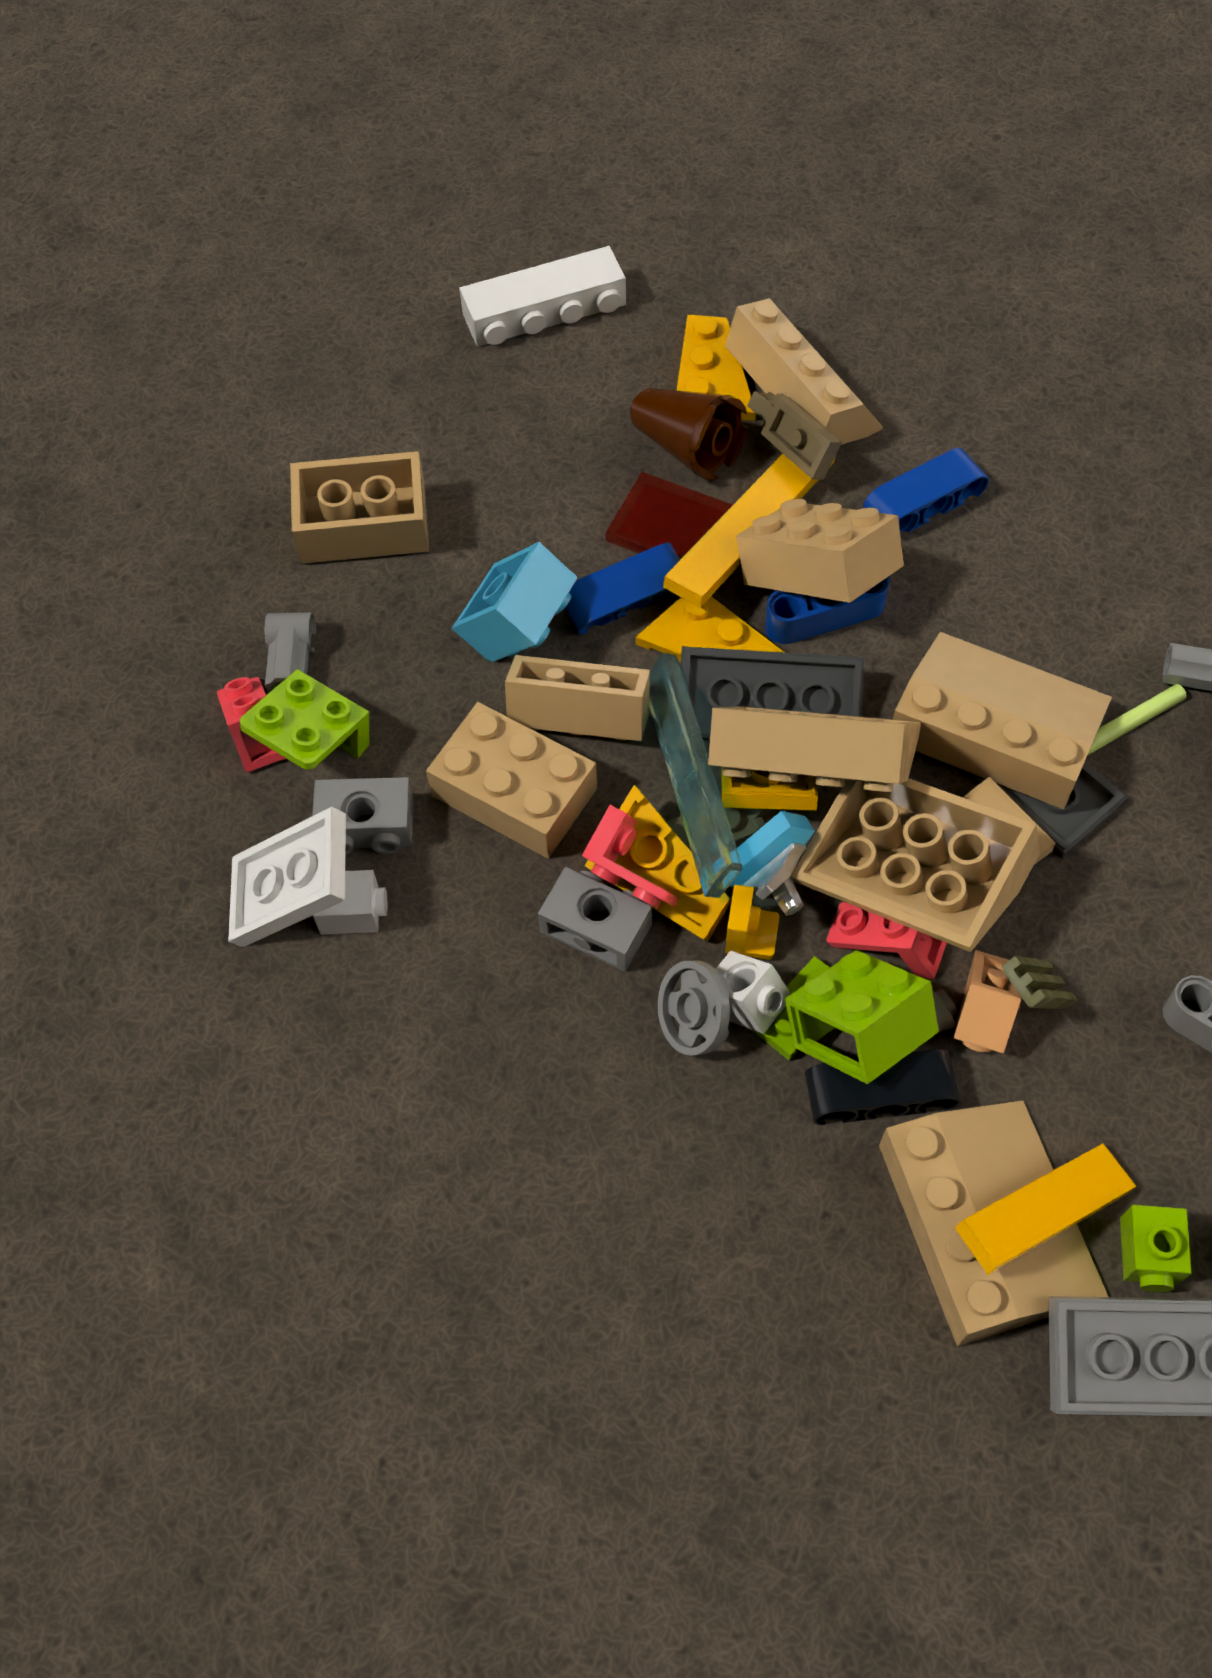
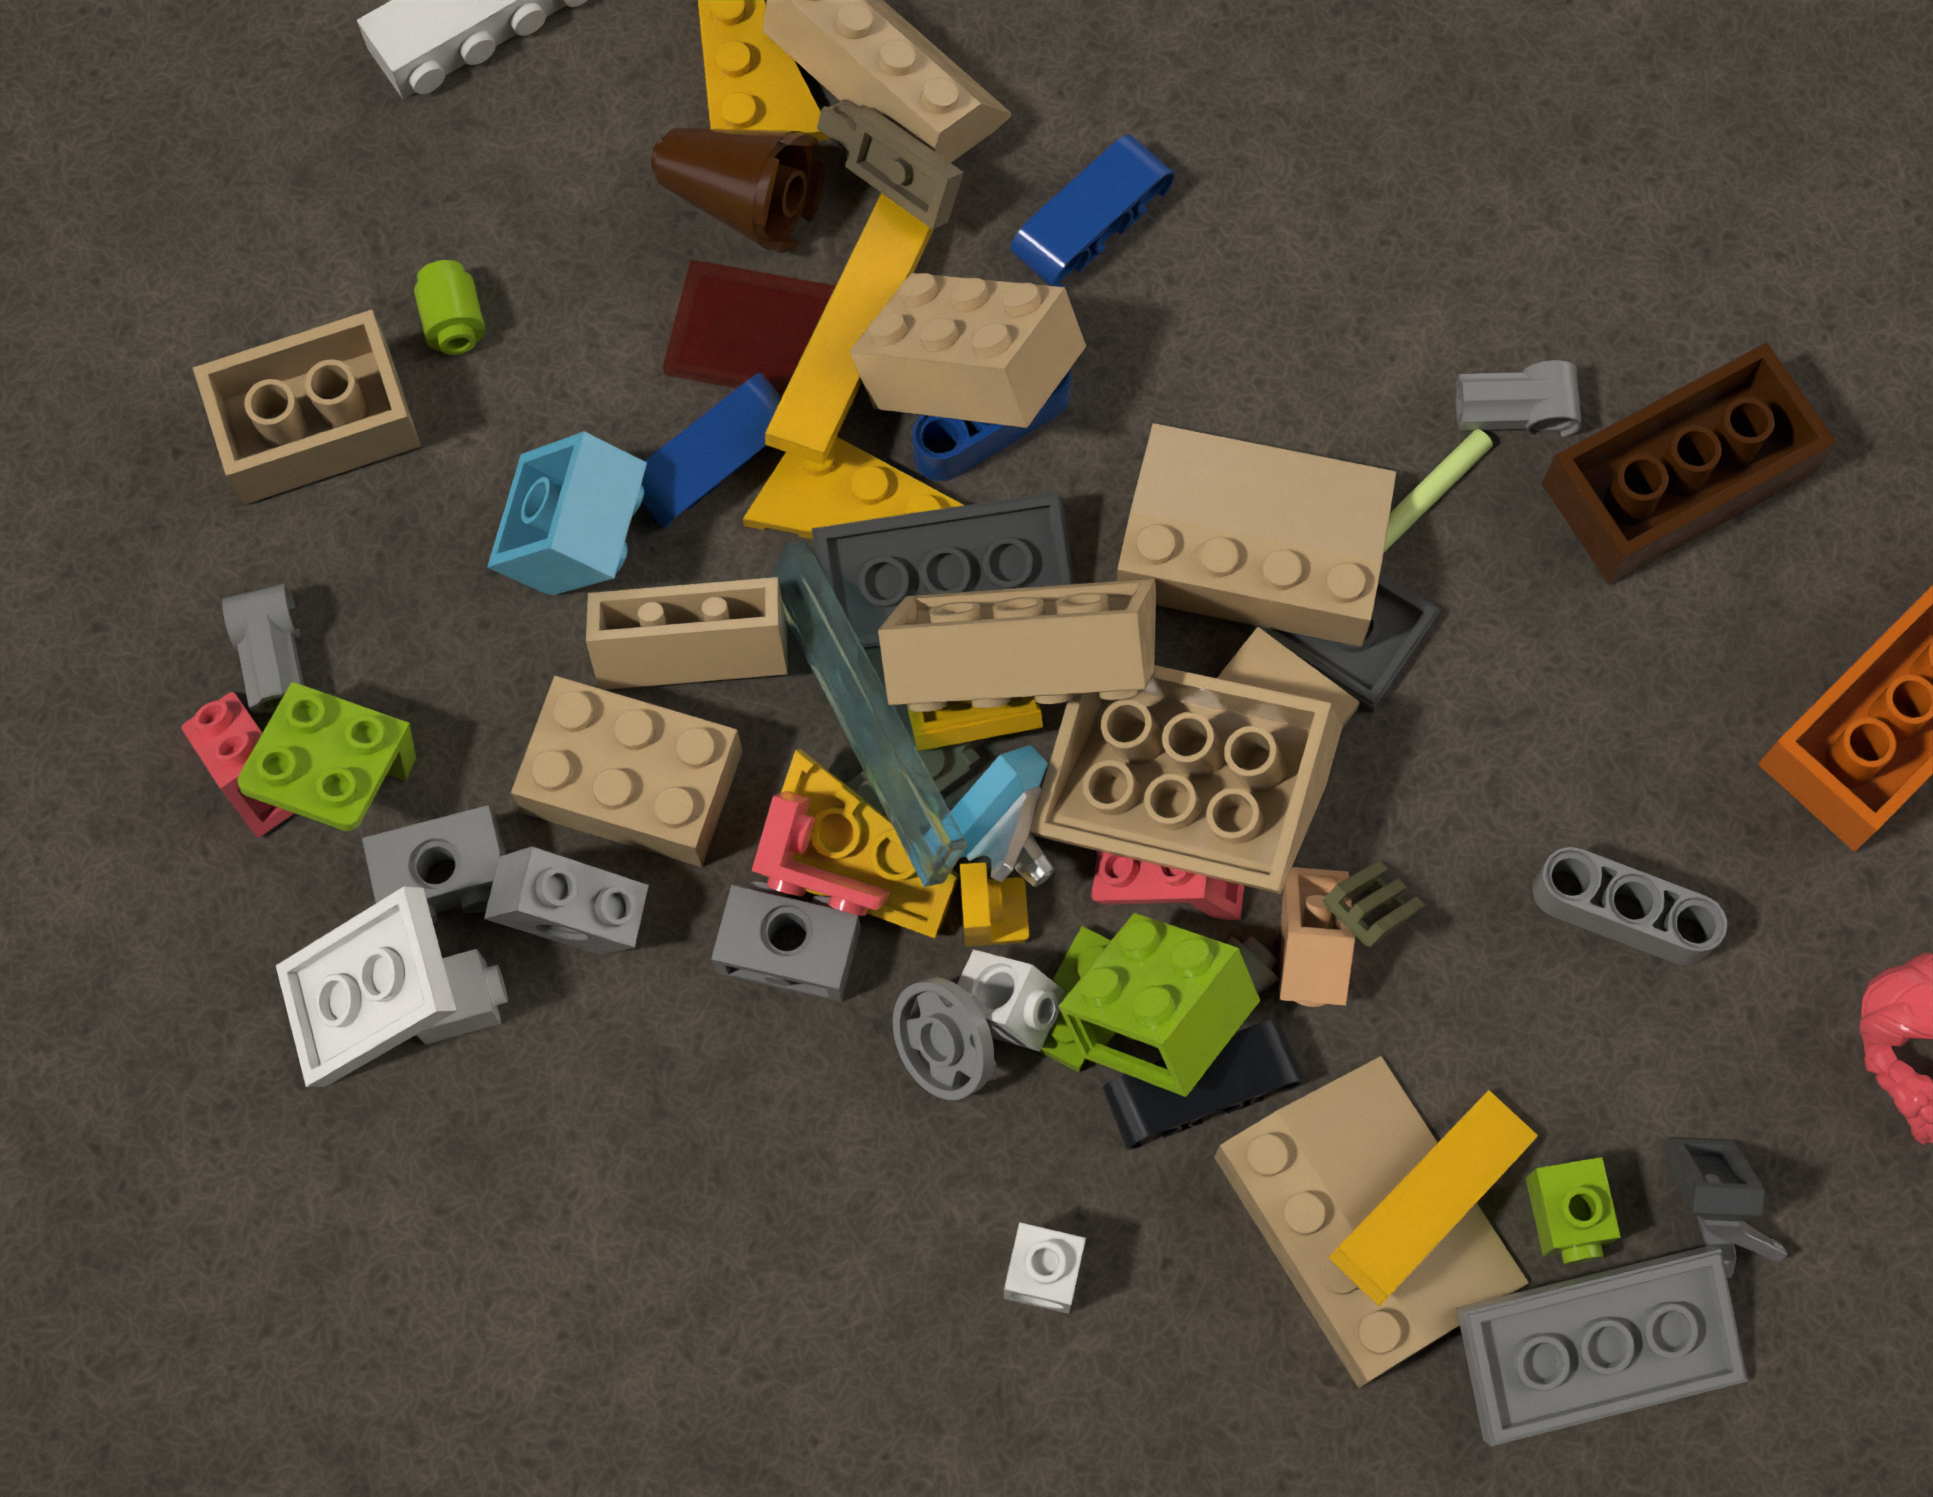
camera: 15 degrees left, 10 degrees up
(445, 851) = (566, 901): none -> light grey brick
(471, 469) = (448, 307): none -> lime brick
(730, 1191) = (1044, 1268): none -> white brick

